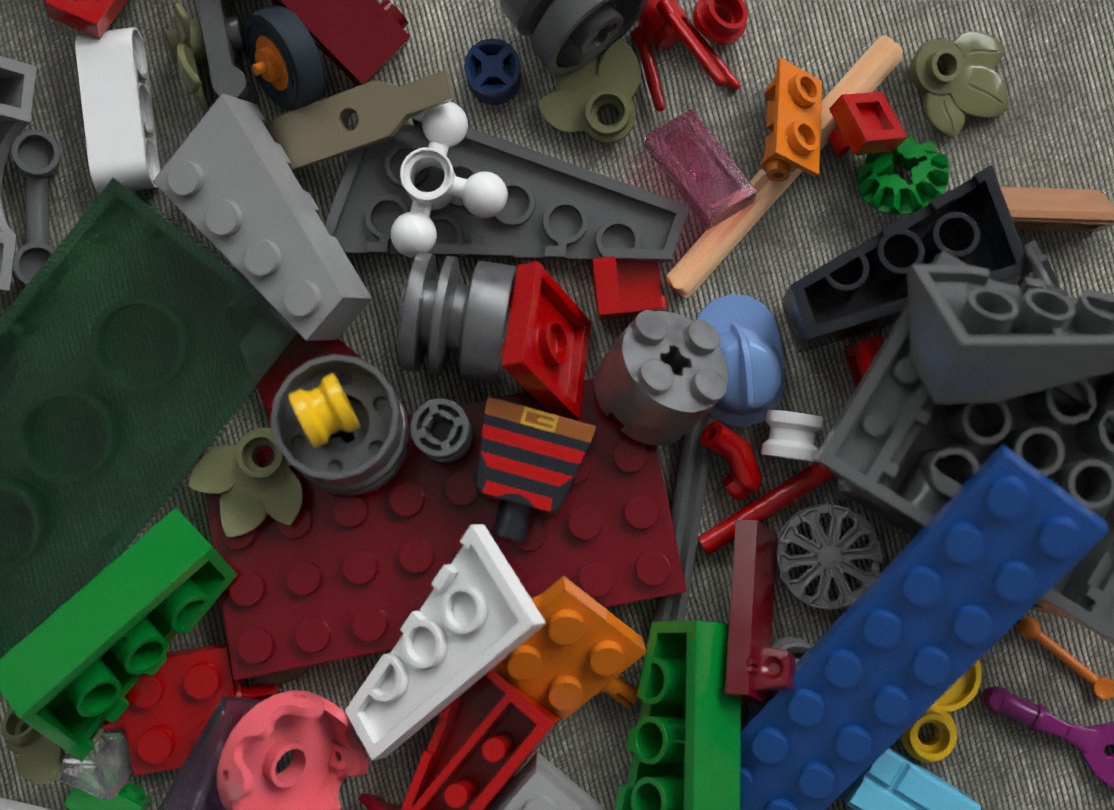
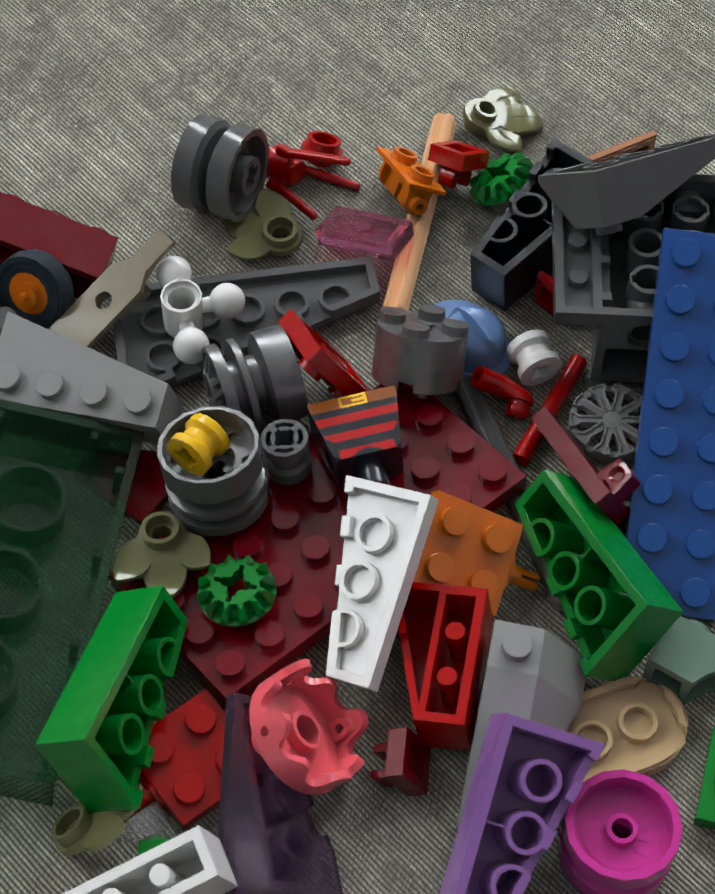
camera: 30 degrees left, 30 degrees down
(329, 571) = (247, 604): none -> green gear
(493, 60) = (186, 232): dark blue wheel -> none
(626, 288) = (351, 331): red panel -> none

